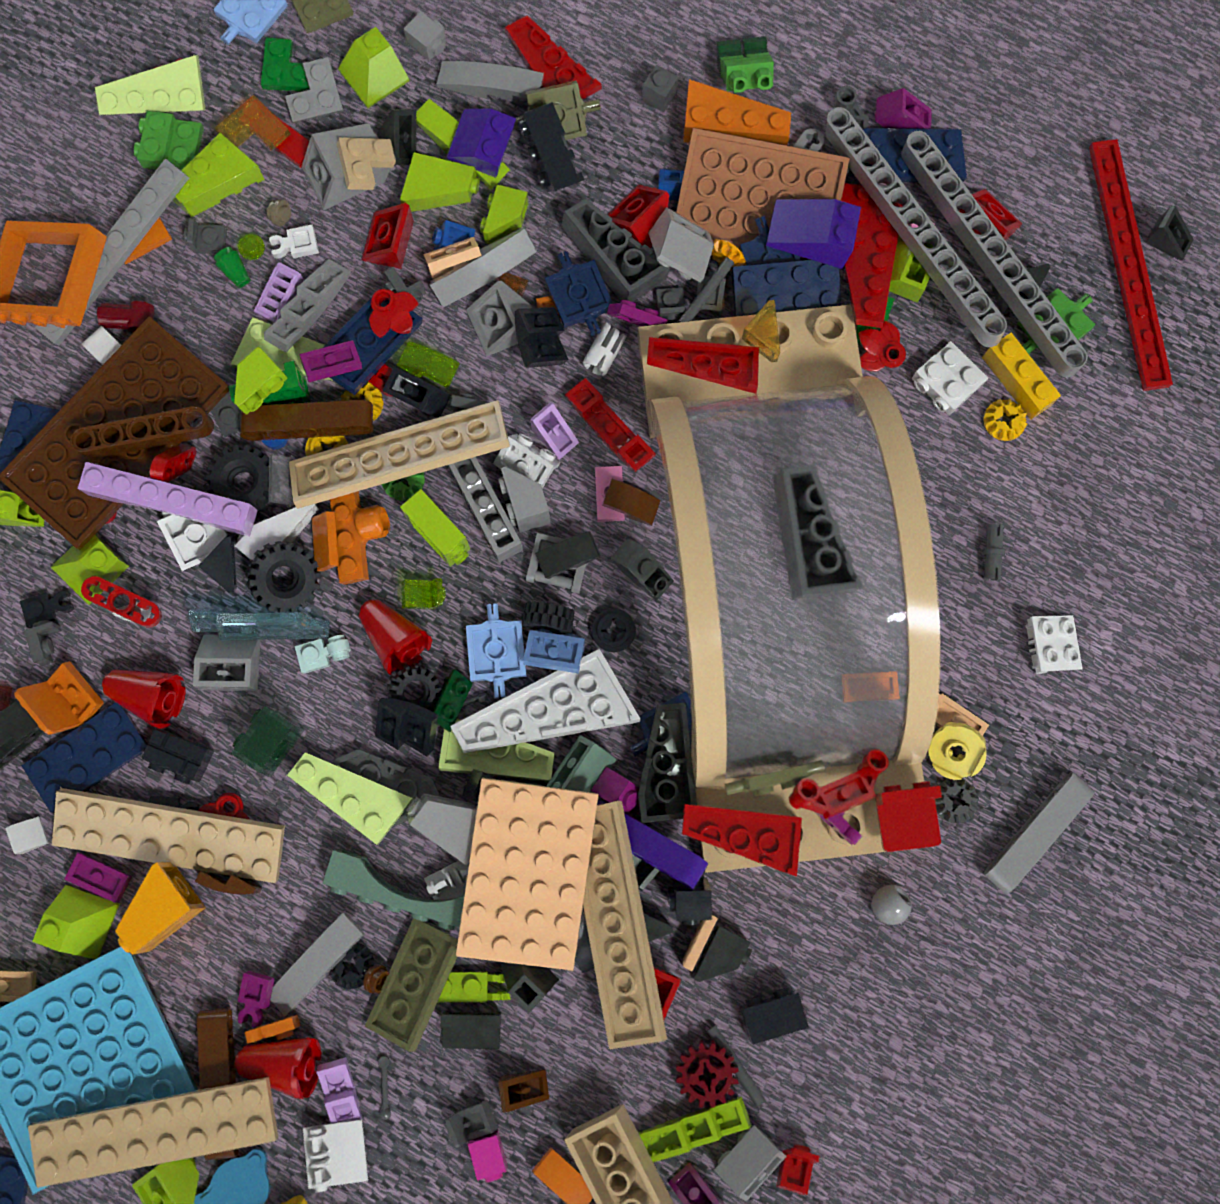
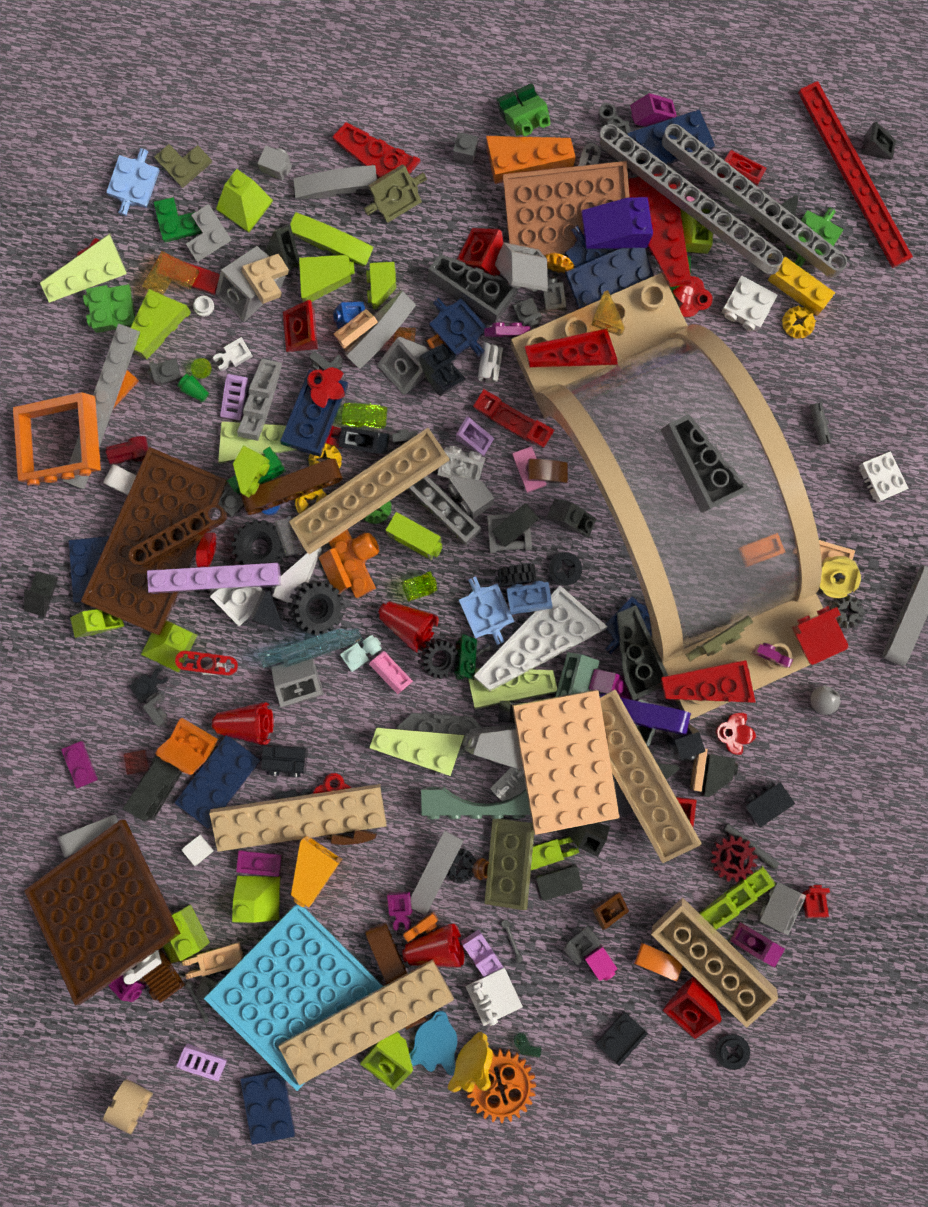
camera: 15 degrees left, 5 degrees up
(266, 741) = (346, 728): clear green brick -> none
(279, 212) = (212, 335): dark tan plate -> none
(281, 175) = (203, 306): none -> white plate
(330, 361) = (296, 438): magenta plate -> none
(349, 689) = (390, 672): none -> bright pink plate
(406, 723) = (440, 684): black slope -> none
(482, 139) = (347, 232): dark purple slope -> none
(549, 148) = (400, 223): black wedge -> none
(671, 182) = (497, 219): blue slope -> none
(707, 290) = (552, 295): dark grey bar -> none
(766, 912) = (738, 733): none -> plate
(844, 792) = (771, 634): red plate -> none

